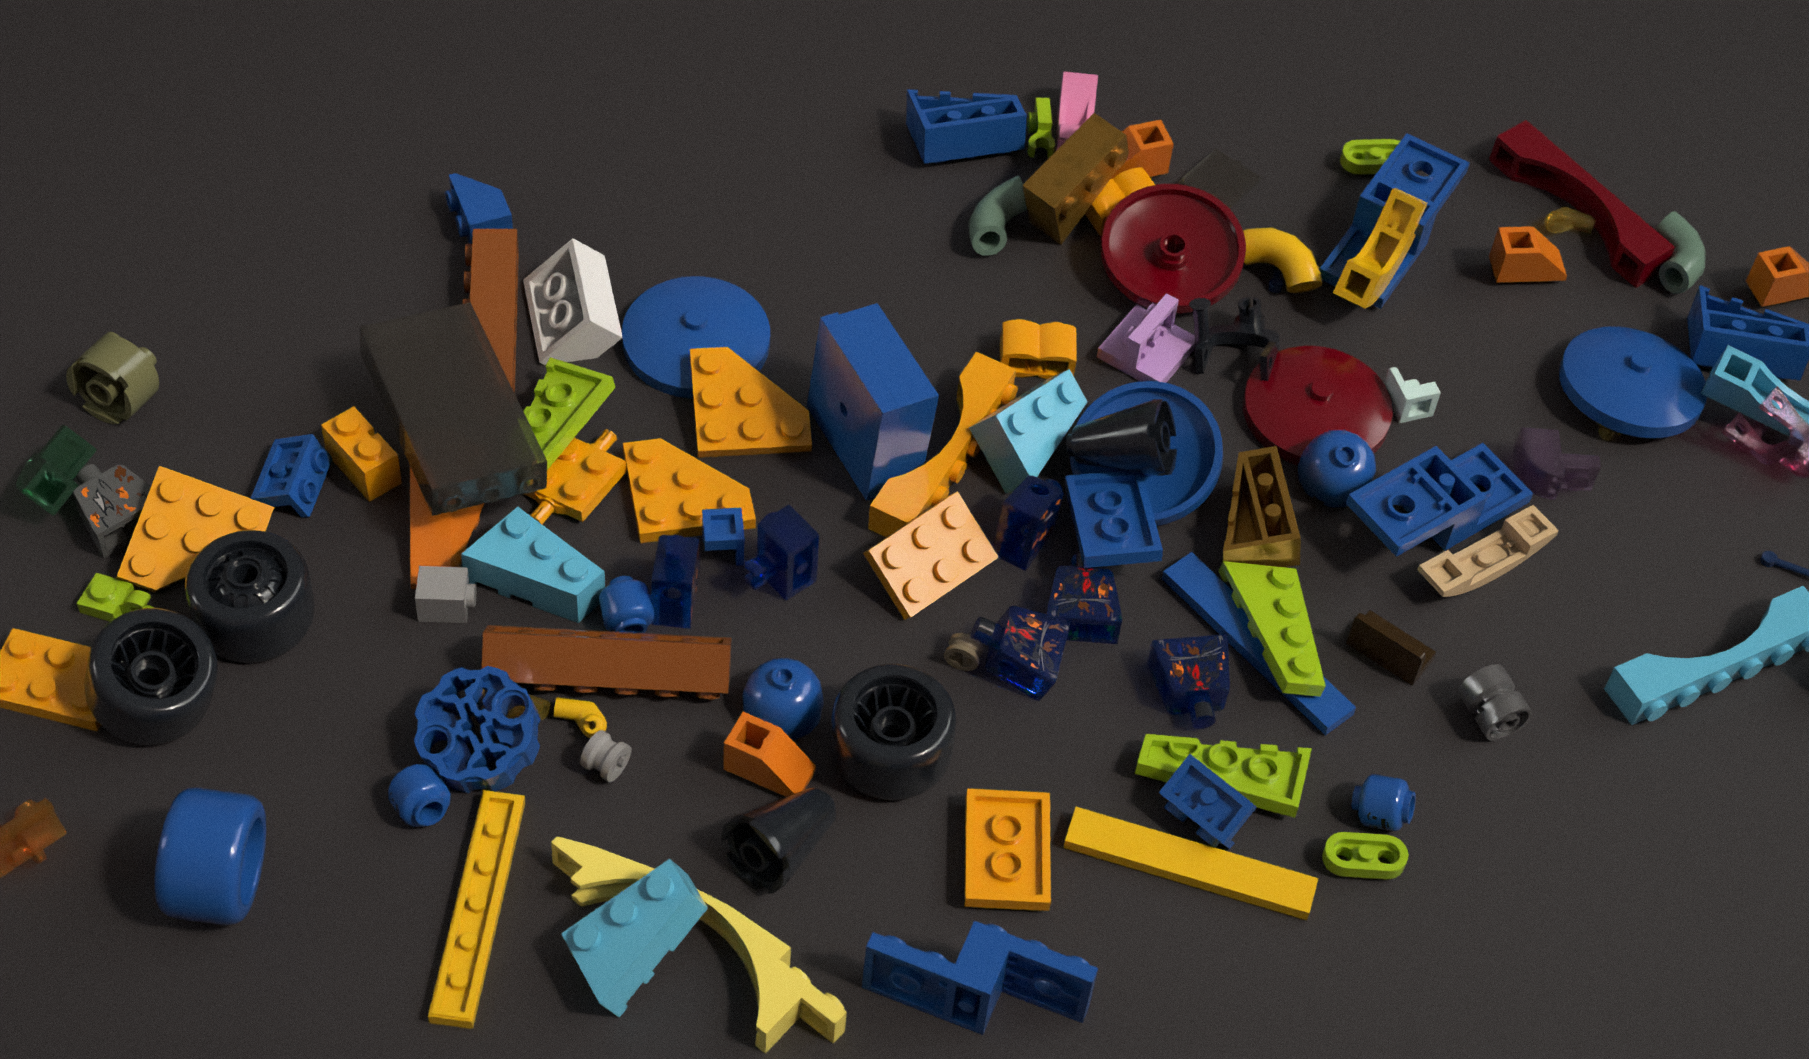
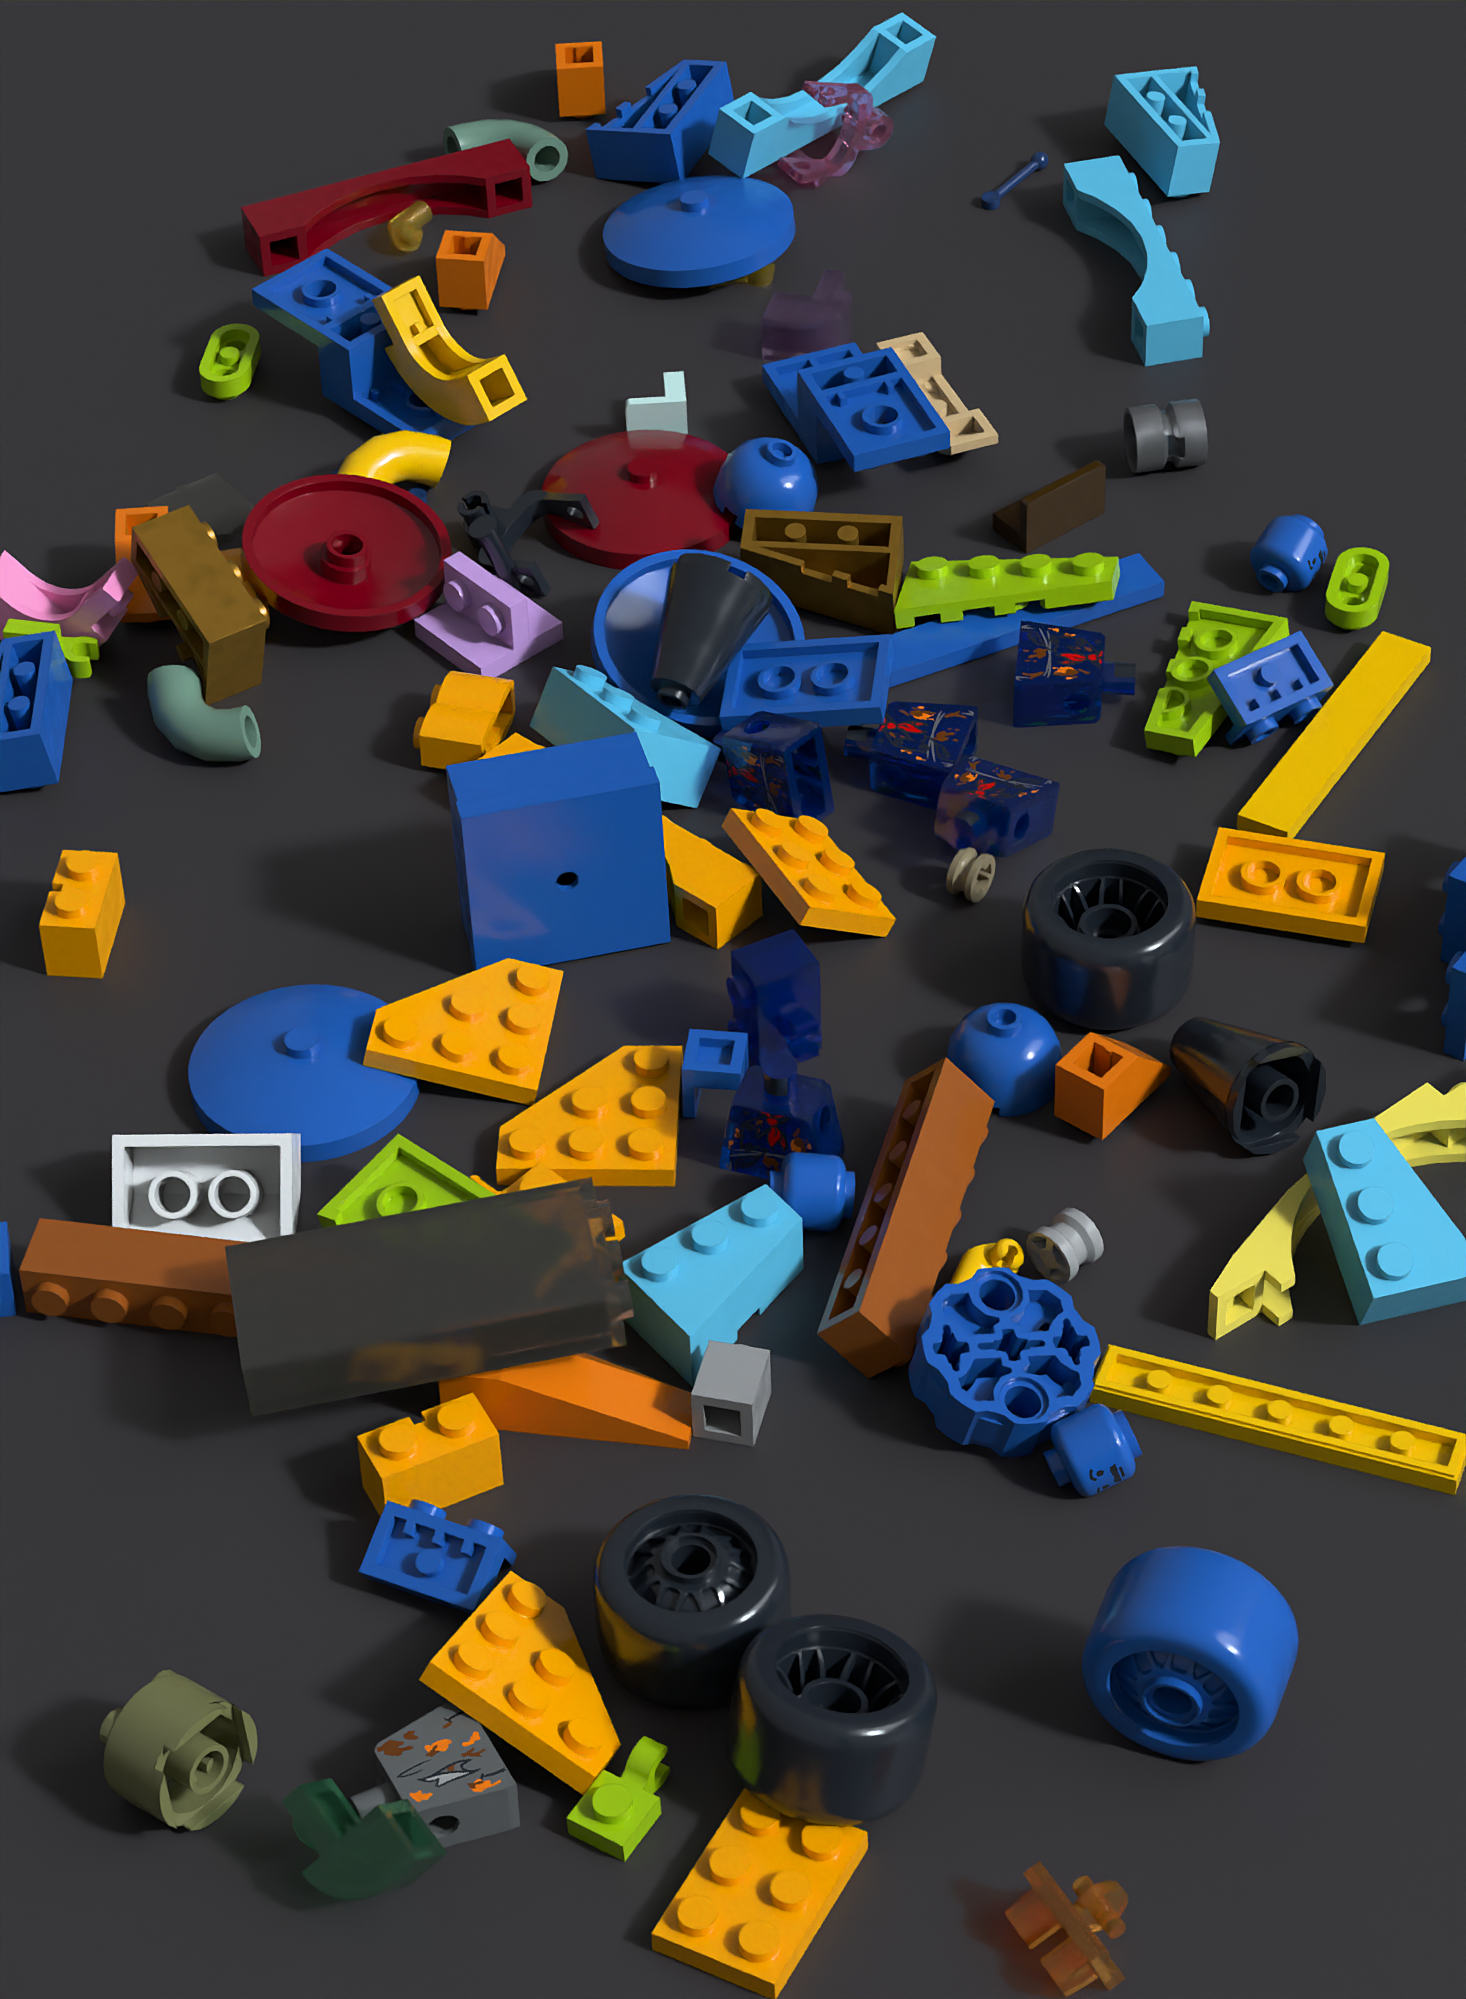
camera: 70 degrees left, 10 degrees down
(797, 197) = (82, 914): none -> light orange piece

